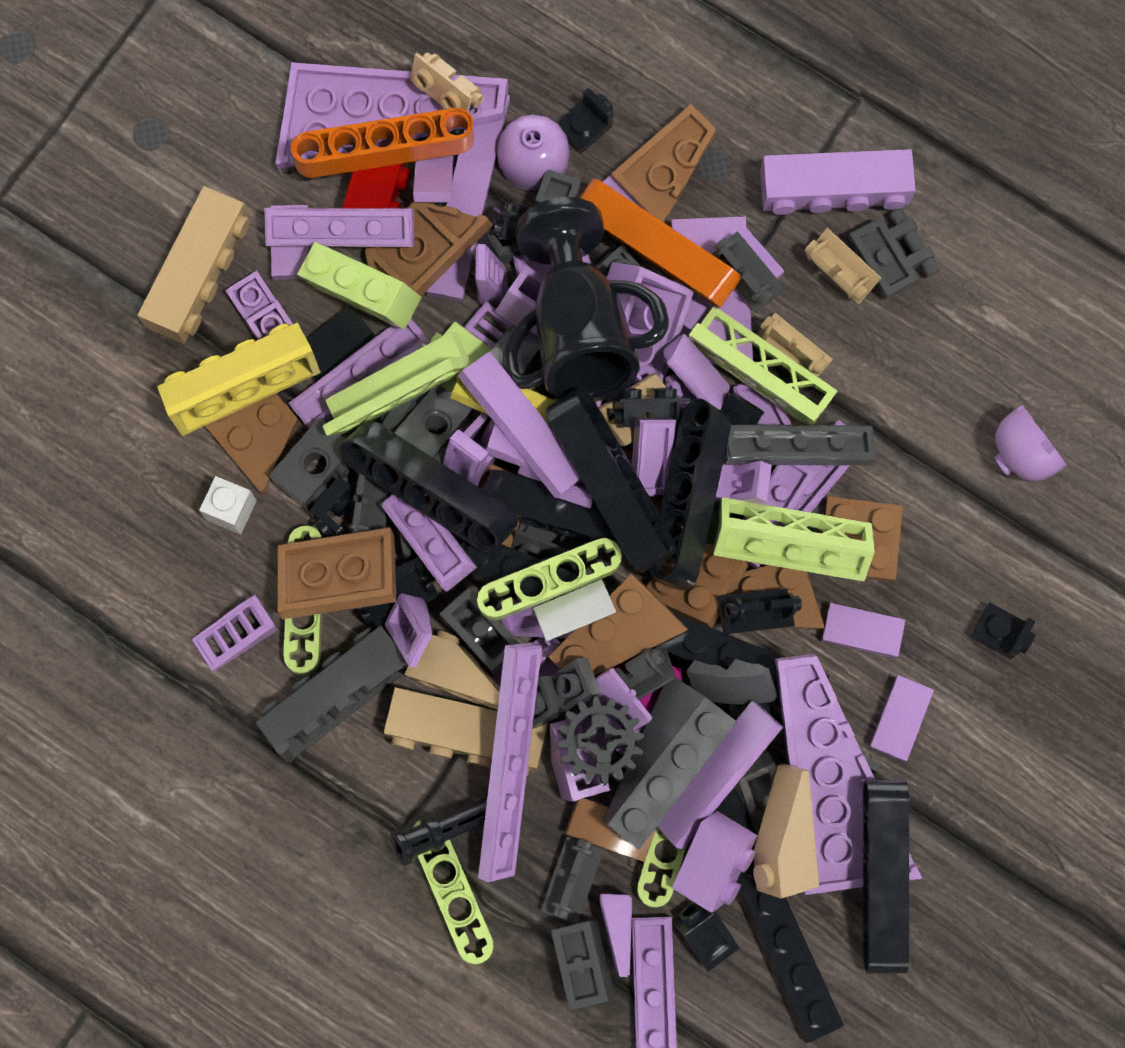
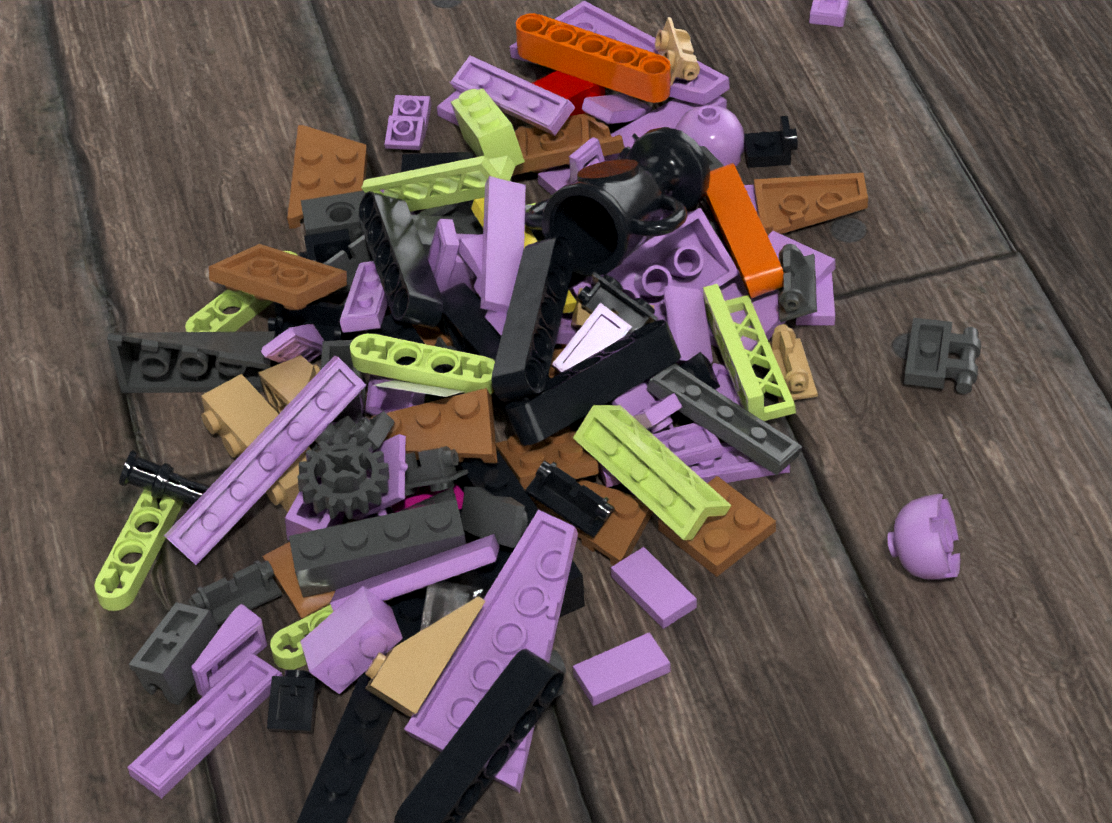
camera: 45 degrees right, 30 degrees down
(194, 265) = (389, 70): tan brick -> none
(228, 505) = (255, 208): white brick -> none
(238, 378) = (340, 133): light yellow slope -> none
(241, 645) = (186, 289): lavender slope -> none
(837, 181) = (937, 277): lavender brick -> none
(842, 265) = (885, 335): tan hinge -> none
(1003, 631) = (776, 664): black bracket -> none

